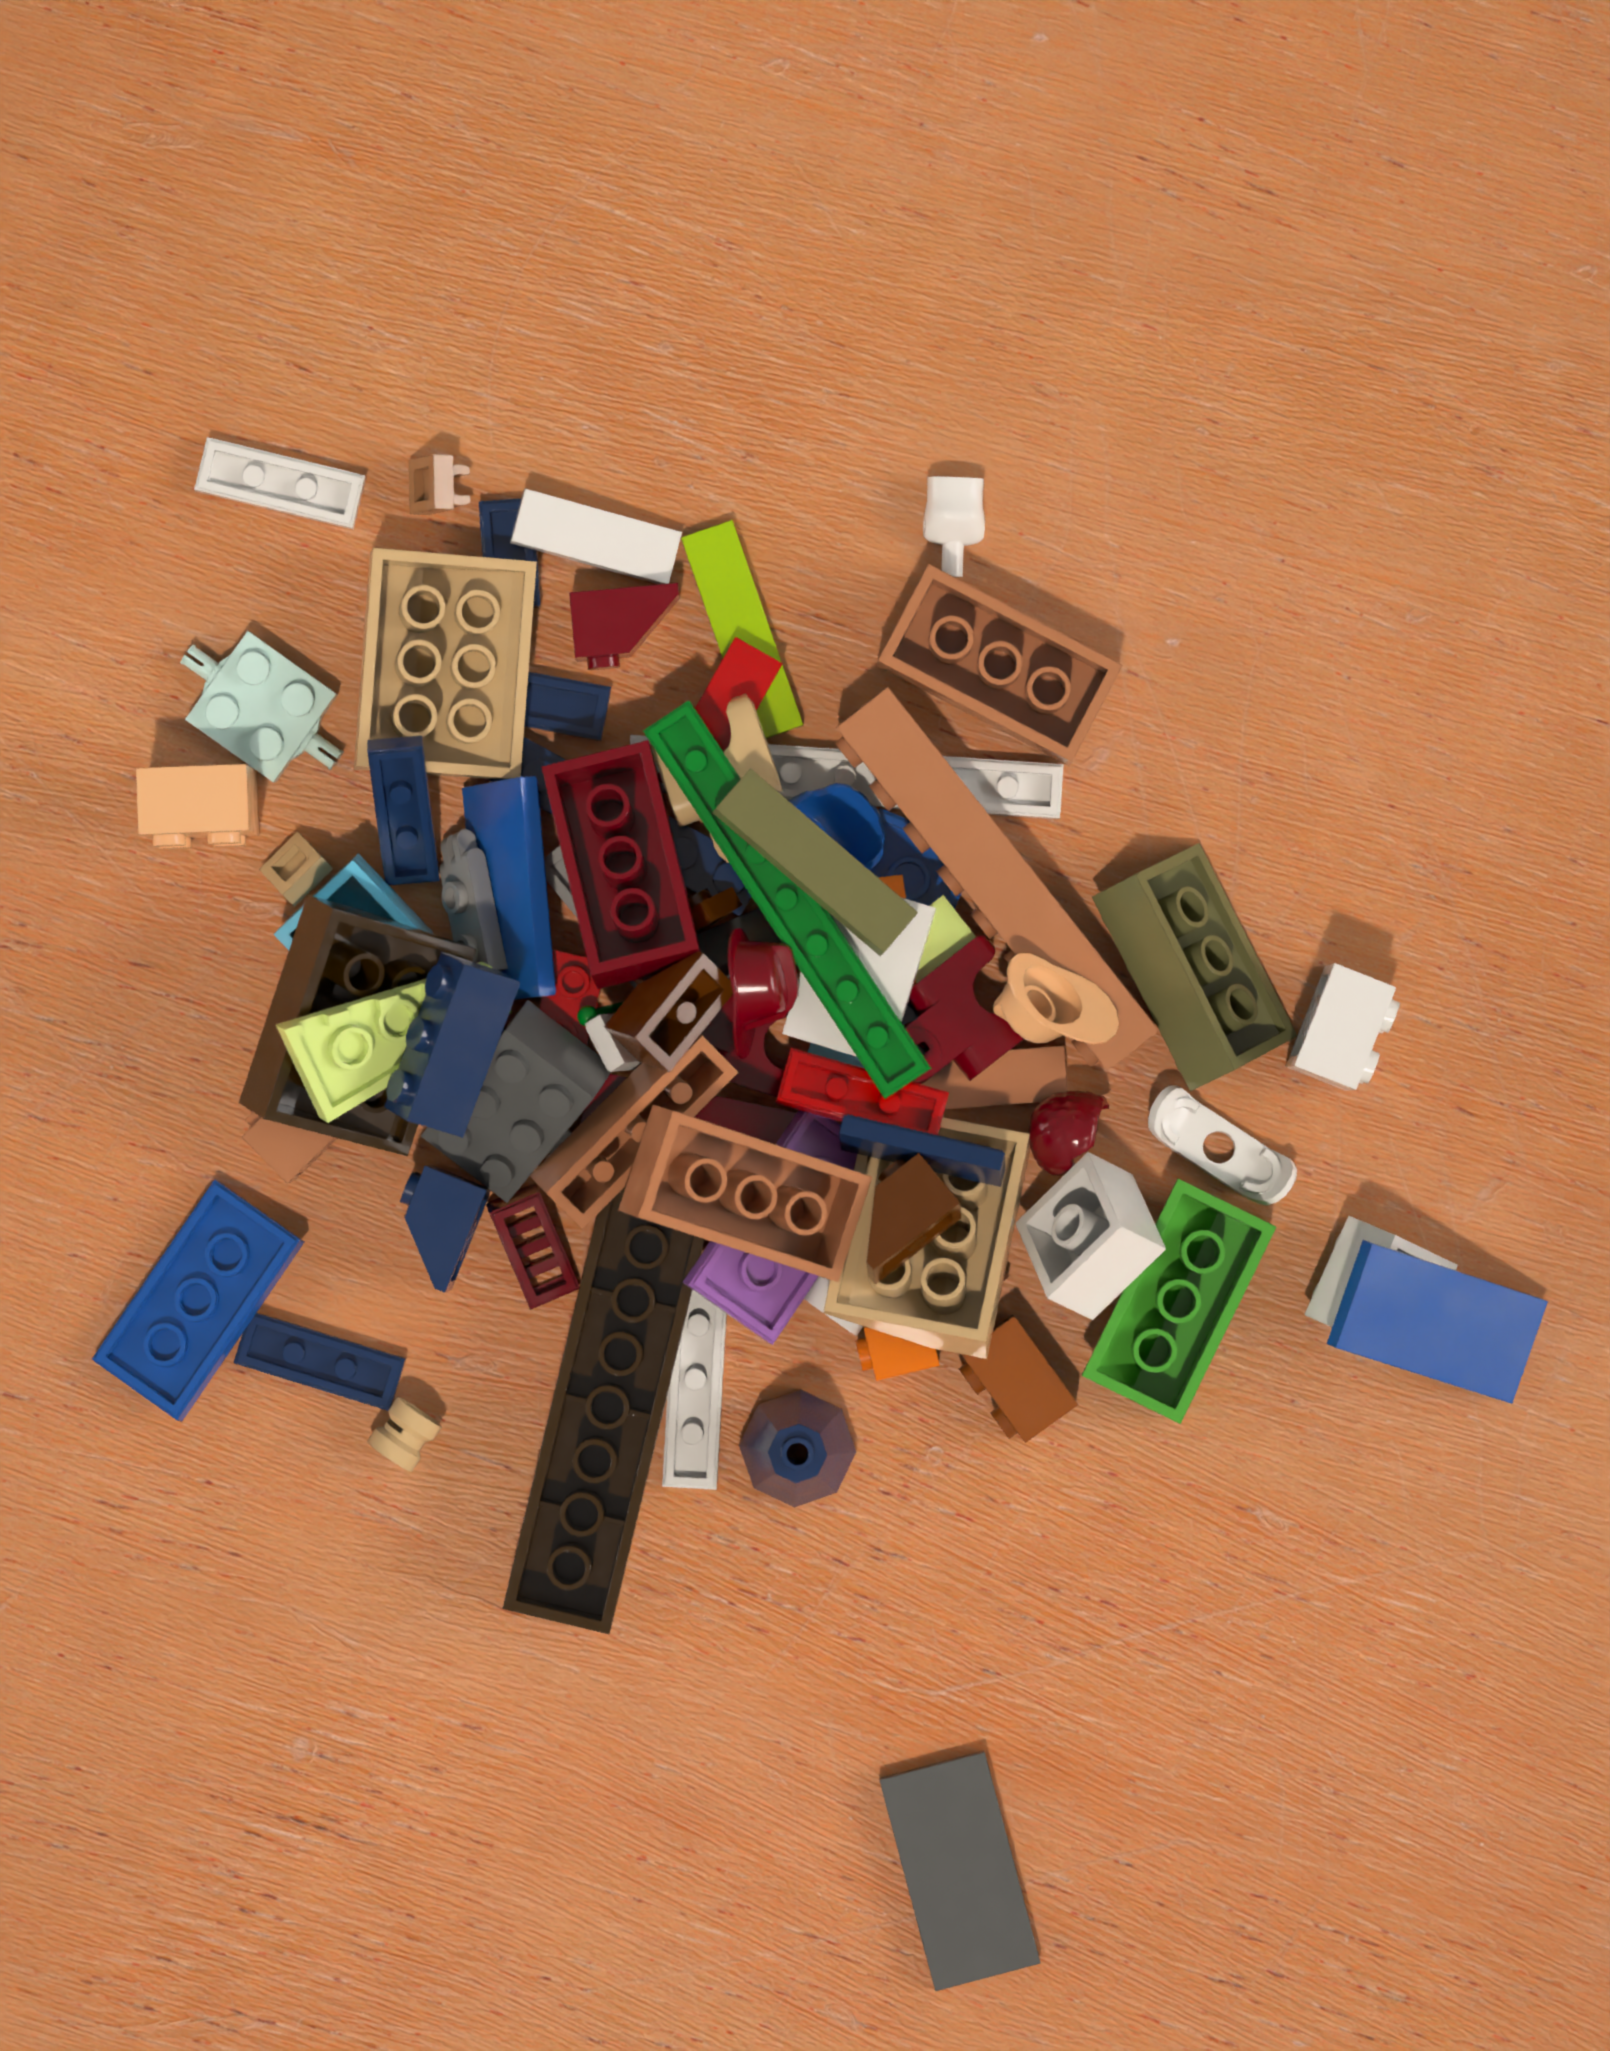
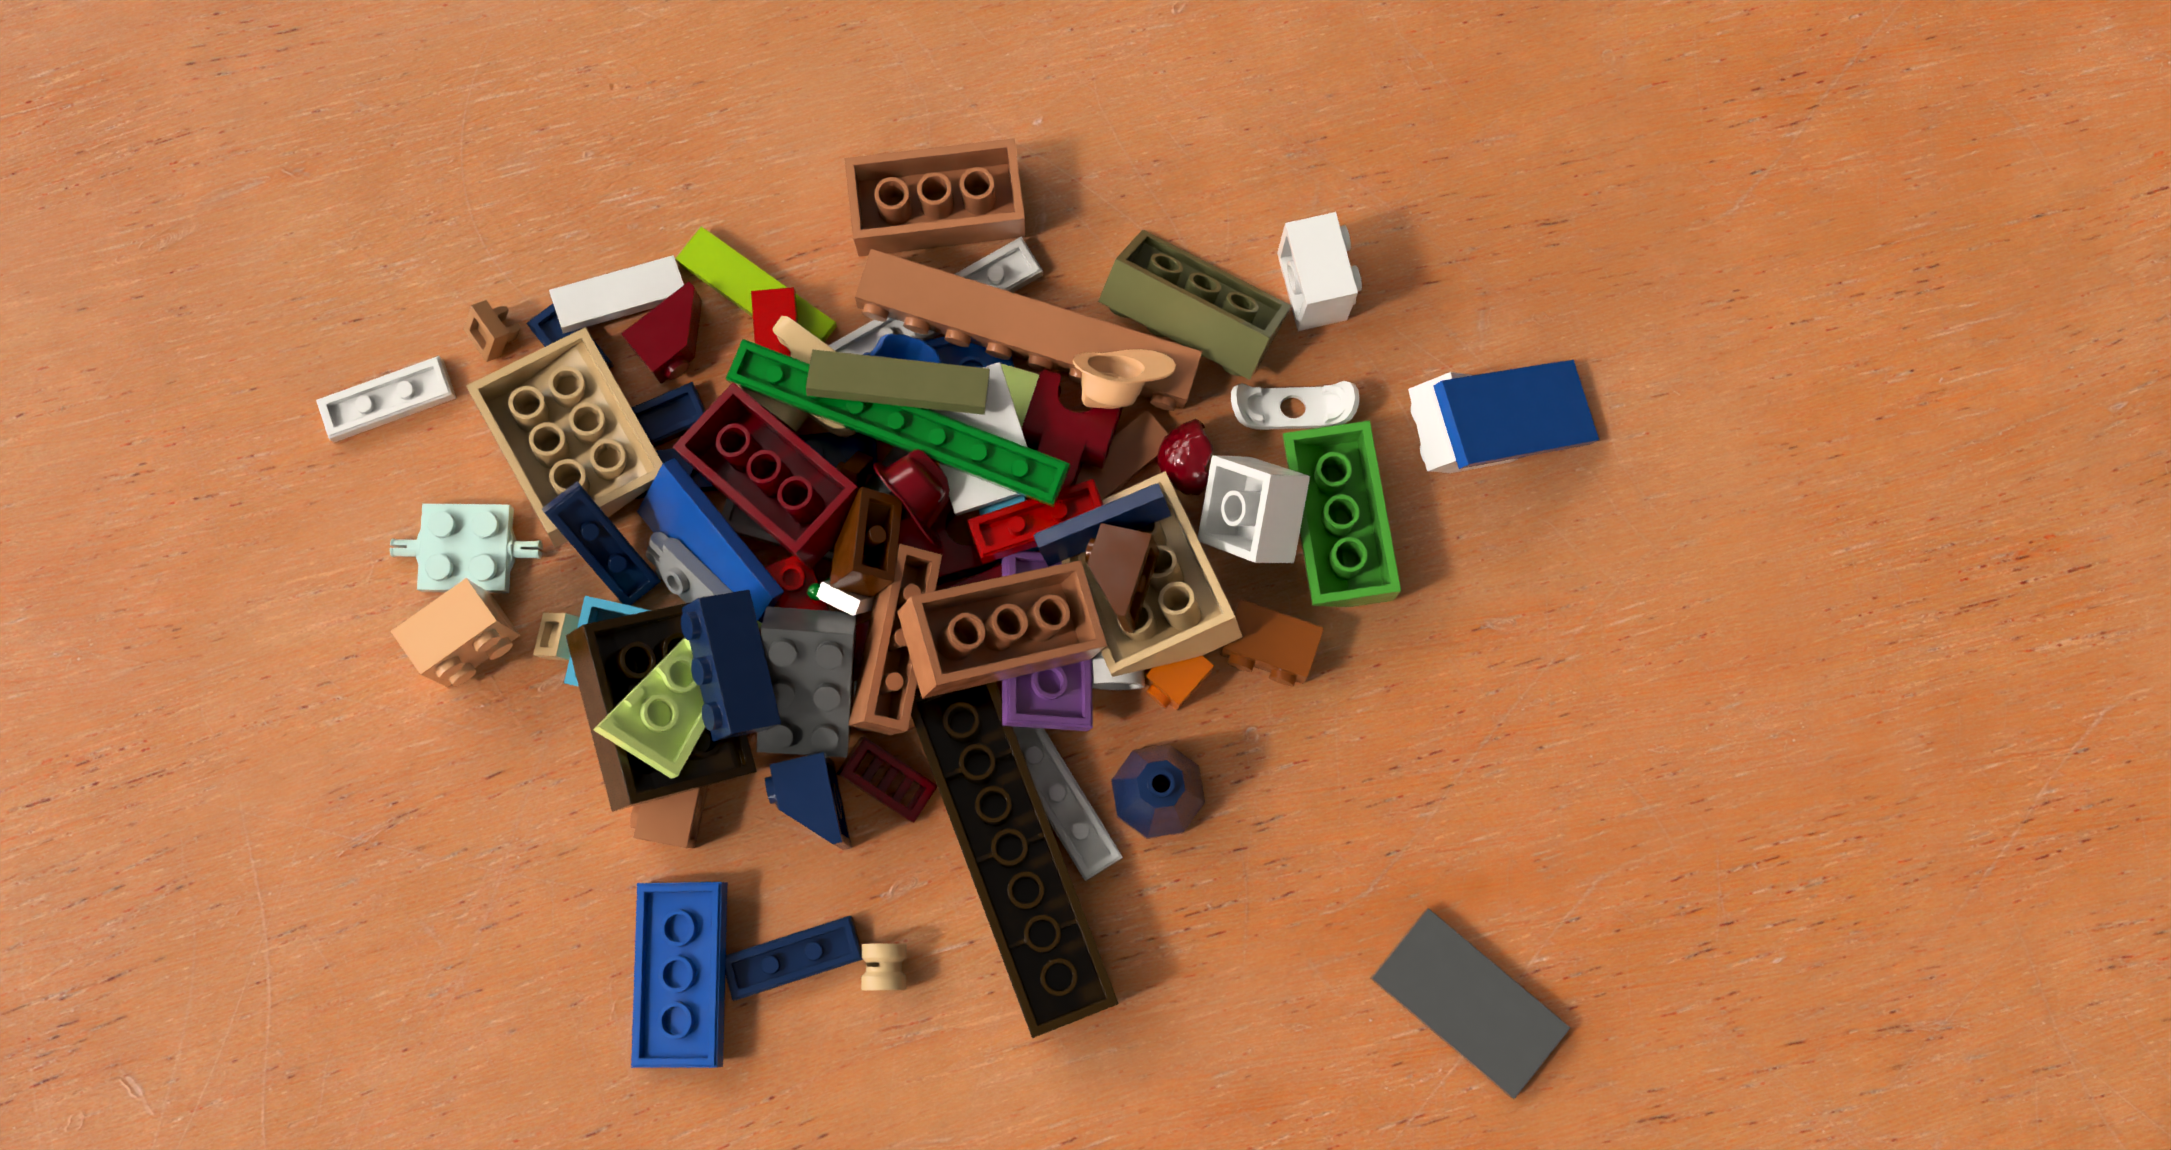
camera: 35 degrees left, 10 degrees down
(954, 518) = (841, 129): white piece -> none

